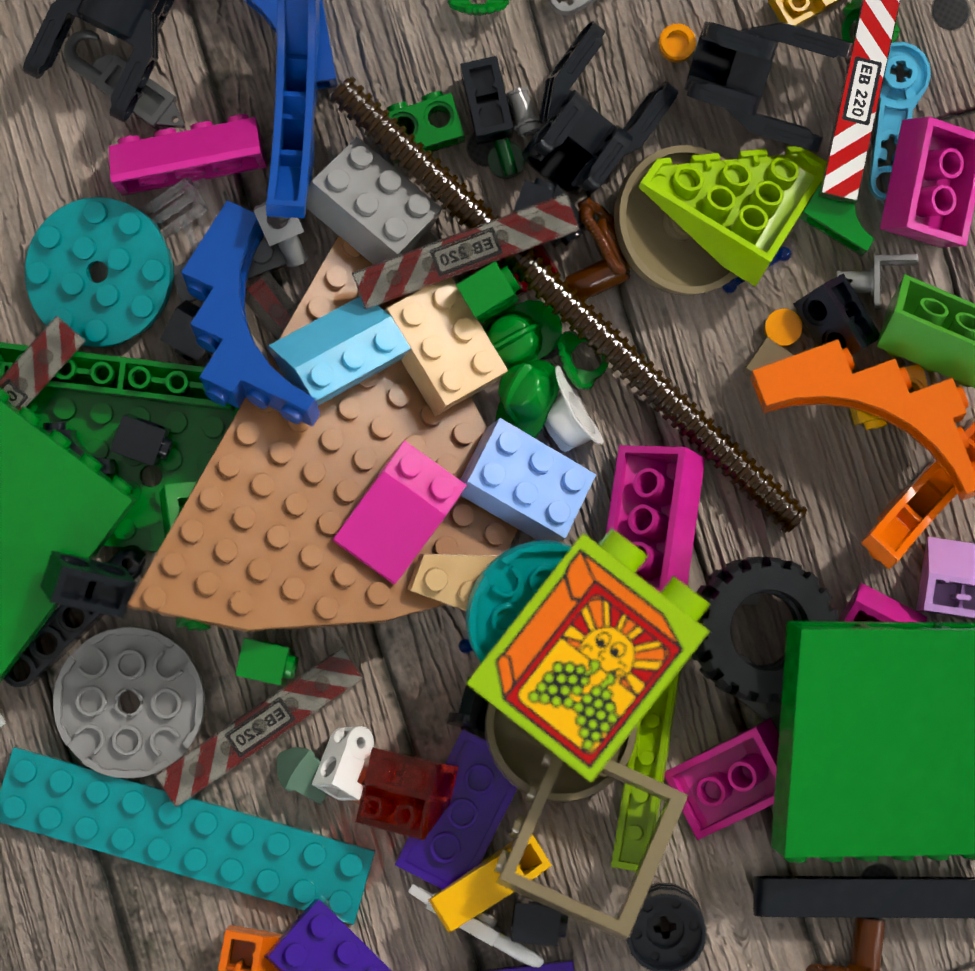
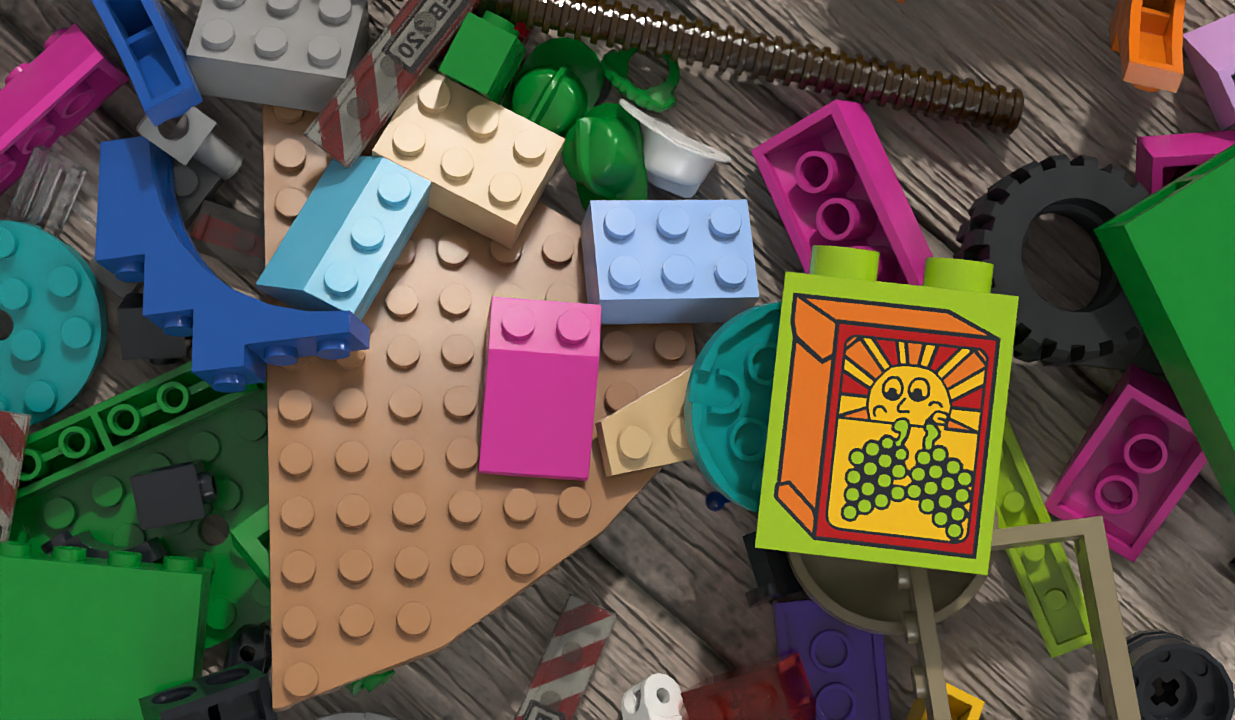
camera: 25 degrees left, 0 degrees up
(266, 661) = (489, 669): green brick -> none

